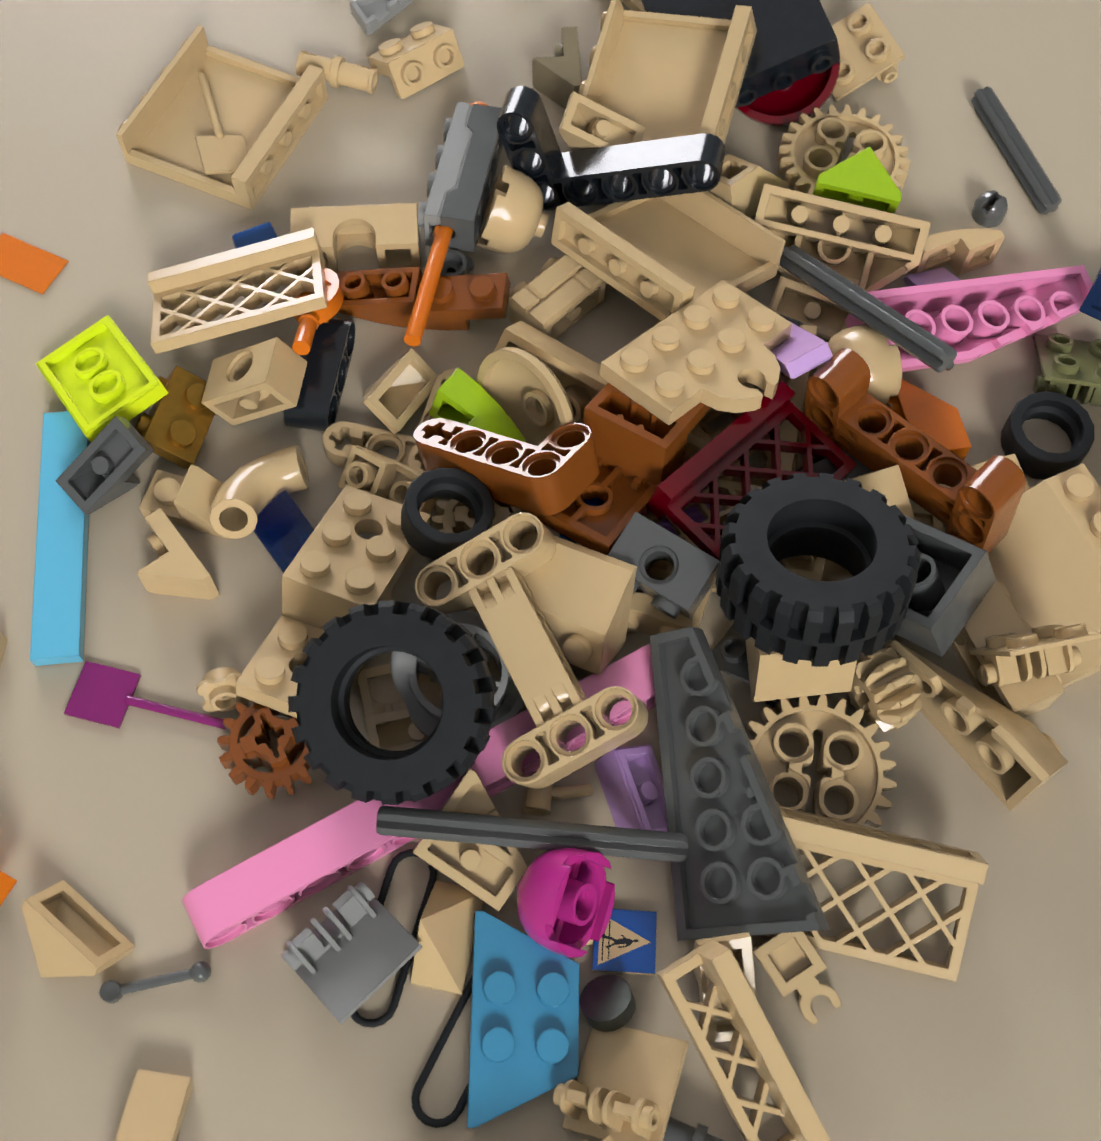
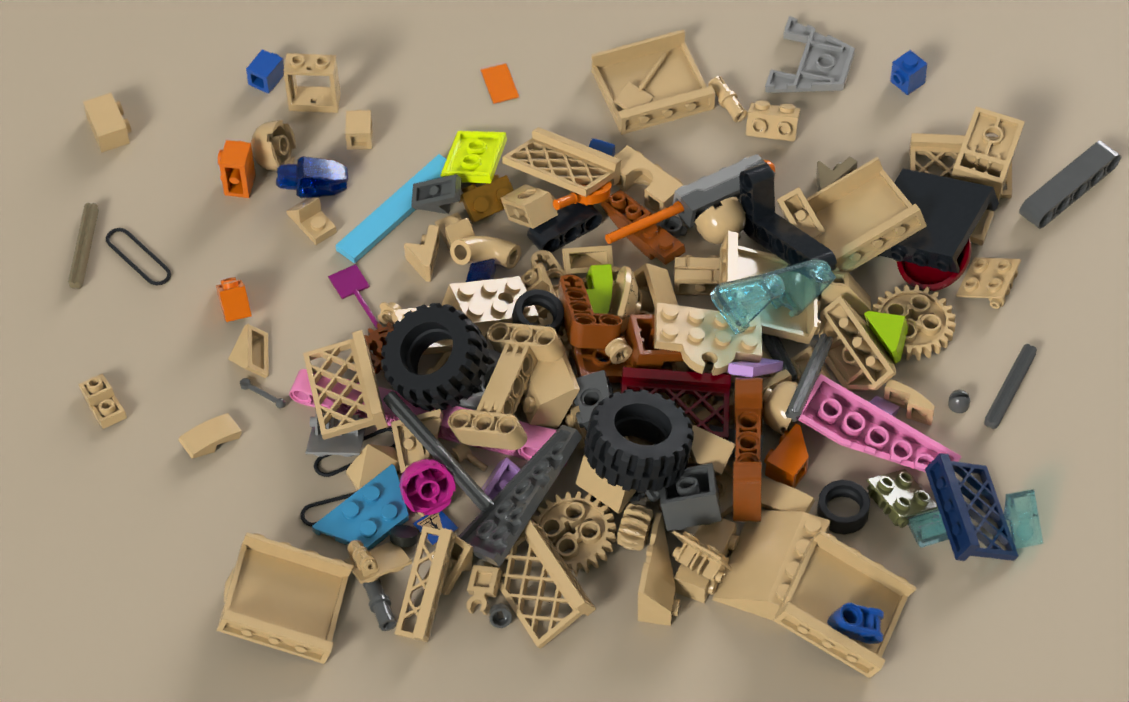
camera: 50 degrees right, 10 degrees down
(312, 822) = (367, 380): none -> tan fence
(614, 470) = (618, 350): none -> tan bush
(719, 235) = (786, 286): none -> clear light blue windscreen
(862, 987) = (493, 615): none -> dark grey hinge

